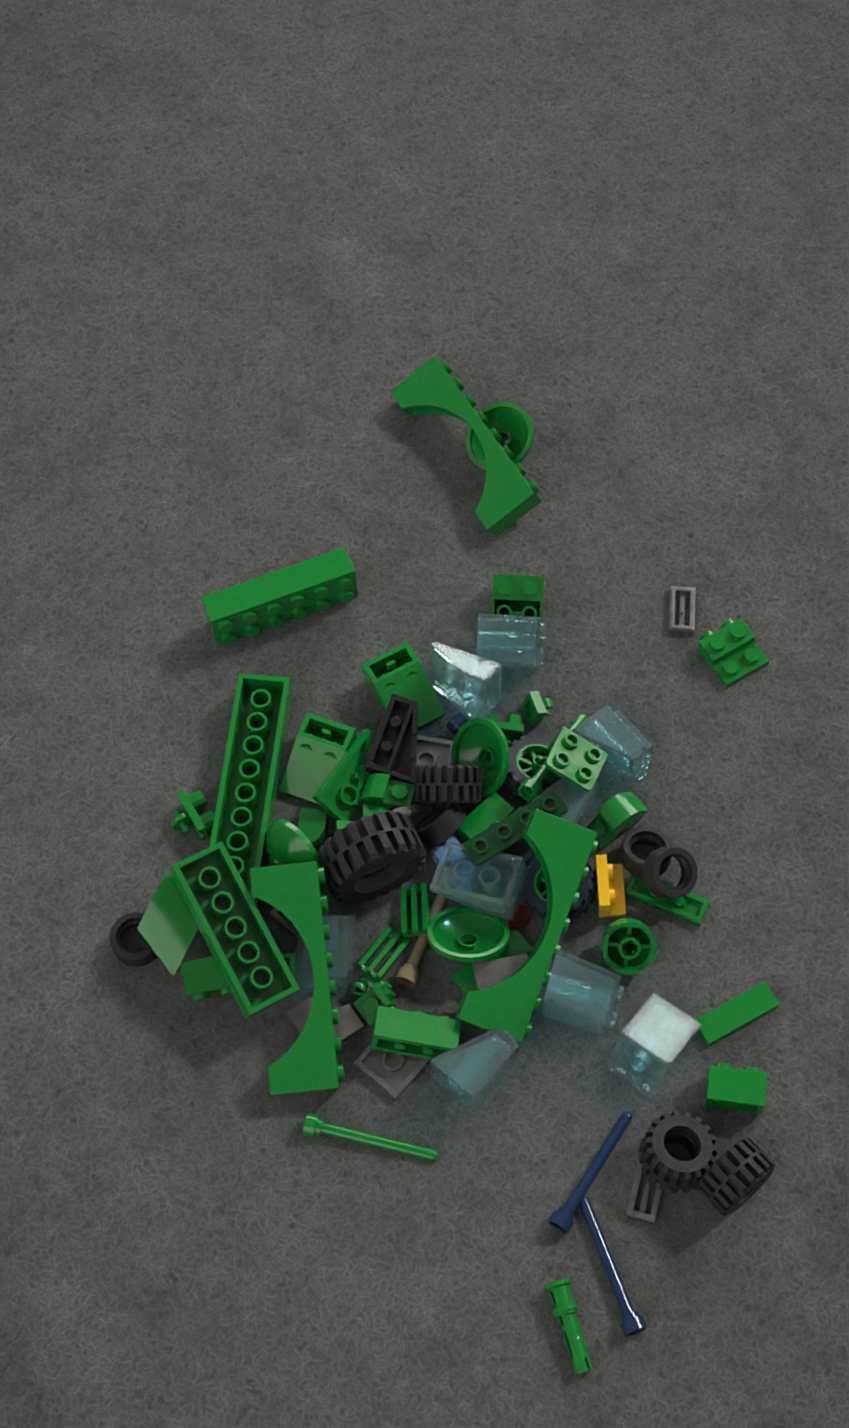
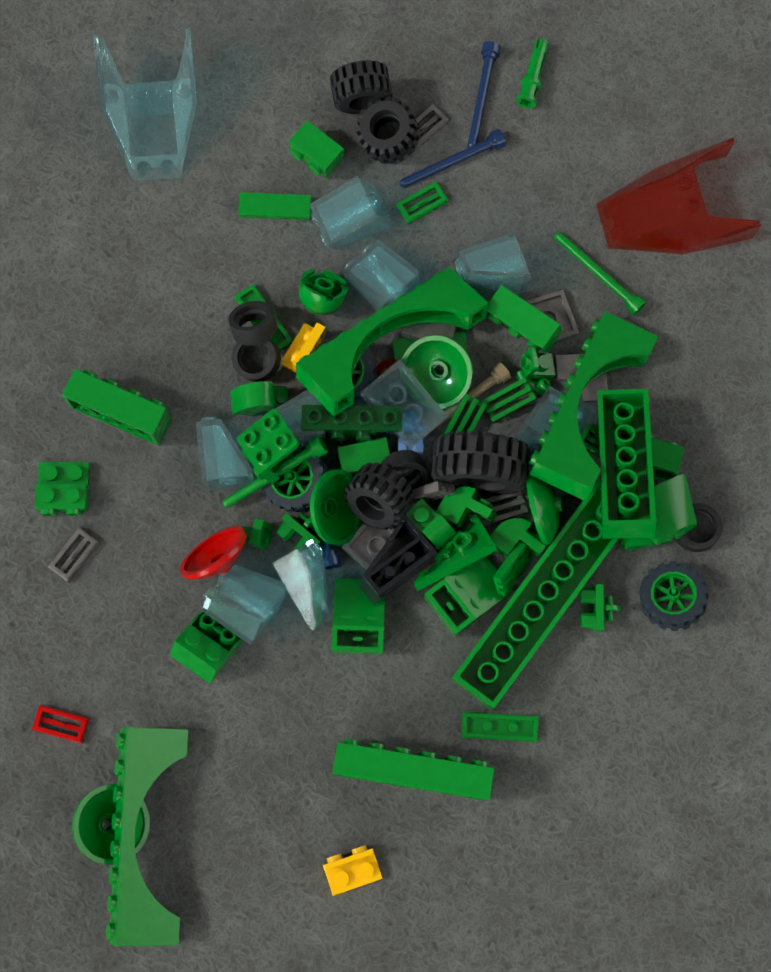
camera: 155 degrees left, 15 degrees up
(118, 885) = (672, 572): none -> black wheel
(225, 679) = (499, 727): none -> green tile
(287, 514) = (352, 871): none -> yellow bracket
(291, 798) = (511, 569): none -> green tile
(344, 1247) = (668, 211): none -> clear red windscreen
(561, 661) = (214, 554): none -> red dish
(583, 1127) = (405, 213): none -> green tile
(595, 491) = (82, 729): none -> red tile
(735, 732) = (116, 406): none -> green brick

